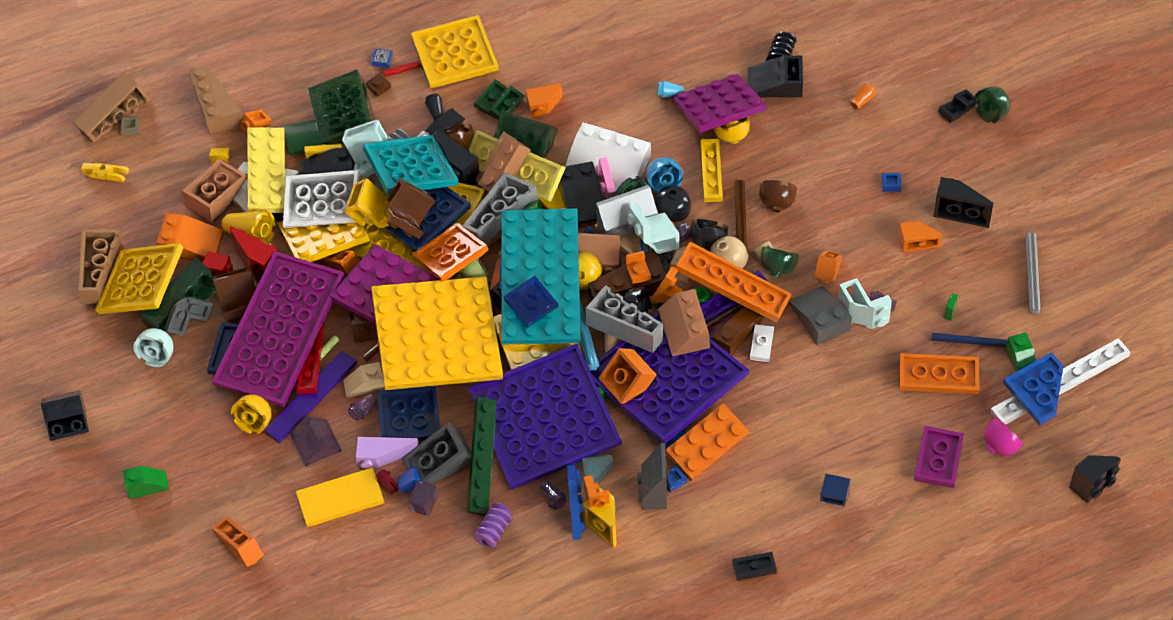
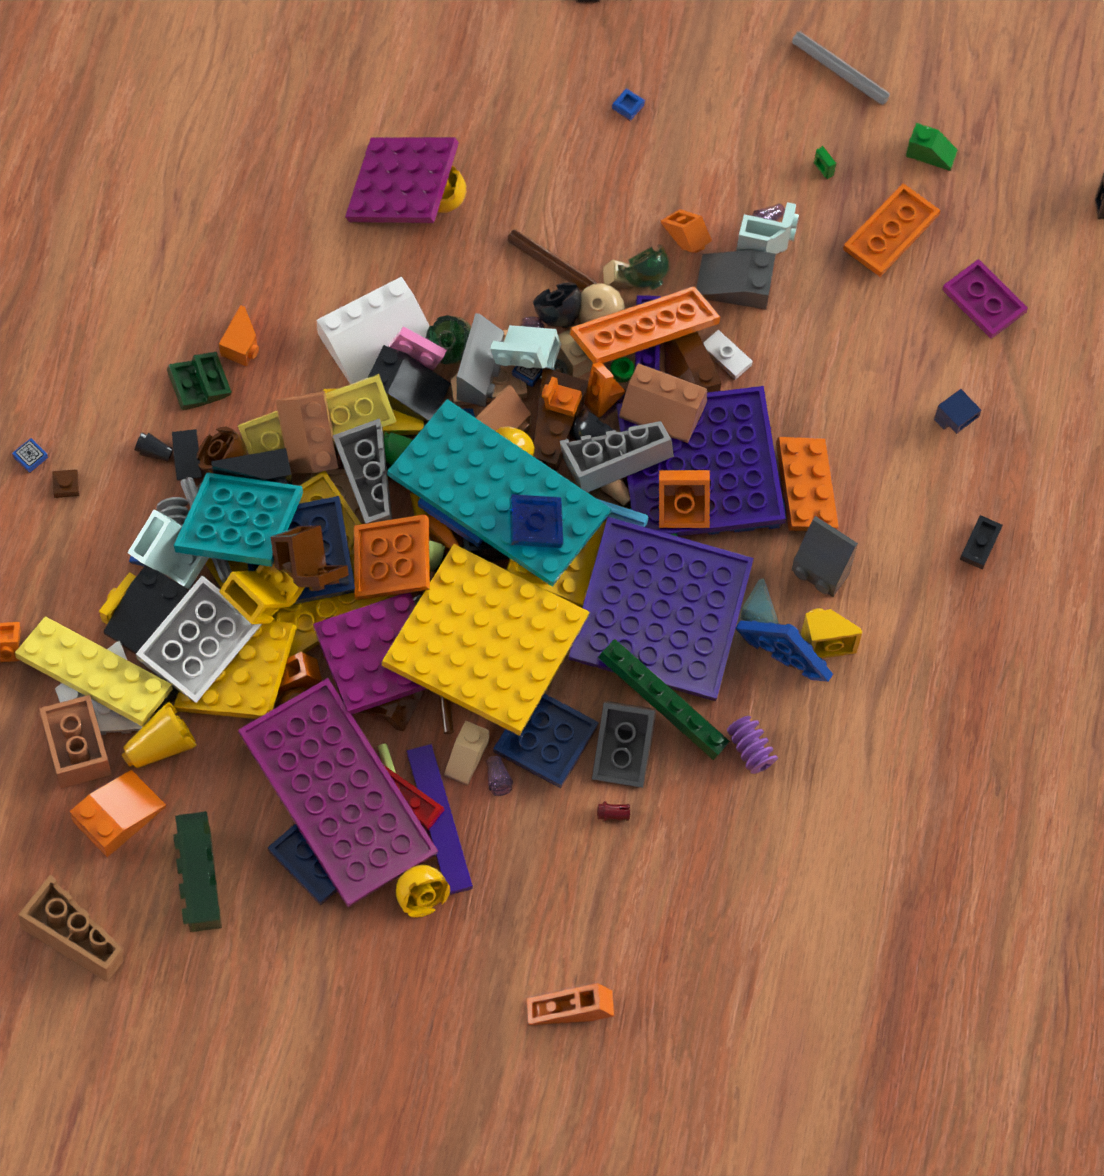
camera: 60 degrees left, 10 degrees up
(65, 415) = (256, 1087): black slope -> none
(139, 278) = (140, 895): yellow plate -> none
(144, 481) = (416, 1056): green slope -> none
(154, 347) = (245, 937): light aqua cylinder -> none
(184, 310) = (226, 867): dark grey plate -> none
(218, 263) = (183, 802): red brick -> none
(219, 153) = (19, 707): yellow slope -> none
(234, 292) = (242, 808): reddish brown piece -> none
(252, 251) = (210, 757): red slope -> none
(301, 135) = (75, 604): dark green slope -> none
(314, 440) = (501, 851): clear purple slope -> none
(340, 106) = (77, 539): clear green slope -> none
(340, 497) = (593, 871): yellow tile -> none
(381, 451) = (568, 798): lavender slope -> none
(406, 67) = (66, 436): red bar -> none
(408, 480) = (628, 789): blue slope -> none
(423, 498) = (663, 789): clear purple brick -> none
(454, 51) = (91, 378): yellow plate -> none
(531, 133) = (278, 380): clear green slope -> none
(554, 497) = (756, 666): clear purple cone -> none
(594, 496) = (813, 622): orange bracket -> none
(663, 173) = (446, 293): dark azure cylinder -> none
(667, 89) = (332, 215): medium azure cone -> none
(673, 202) = (490, 305): black cylinder -> none
(711, 170) = (475, 248): yellow plate -> none
(776, 195) = (565, 213): reddish brown cylinder -> none
(777, 77) = (413, 104): black slope -> none
(781, 45) = (378, 77): black piece -> none
(863, 95) = (502, 49): orange cone -> none
(918, 236) = (717, 130): orange slope -> none
(962, 204) = (717, 63): black slope -> none
(969, 339) = (872, 176): dark blue bar -> none
(1001, 439) = (1010, 232): dark pink cylinder -> none
(1038, 387) = (983, 160): blue plate -> none
(1071, 377) = (984, 139): white plate -> none

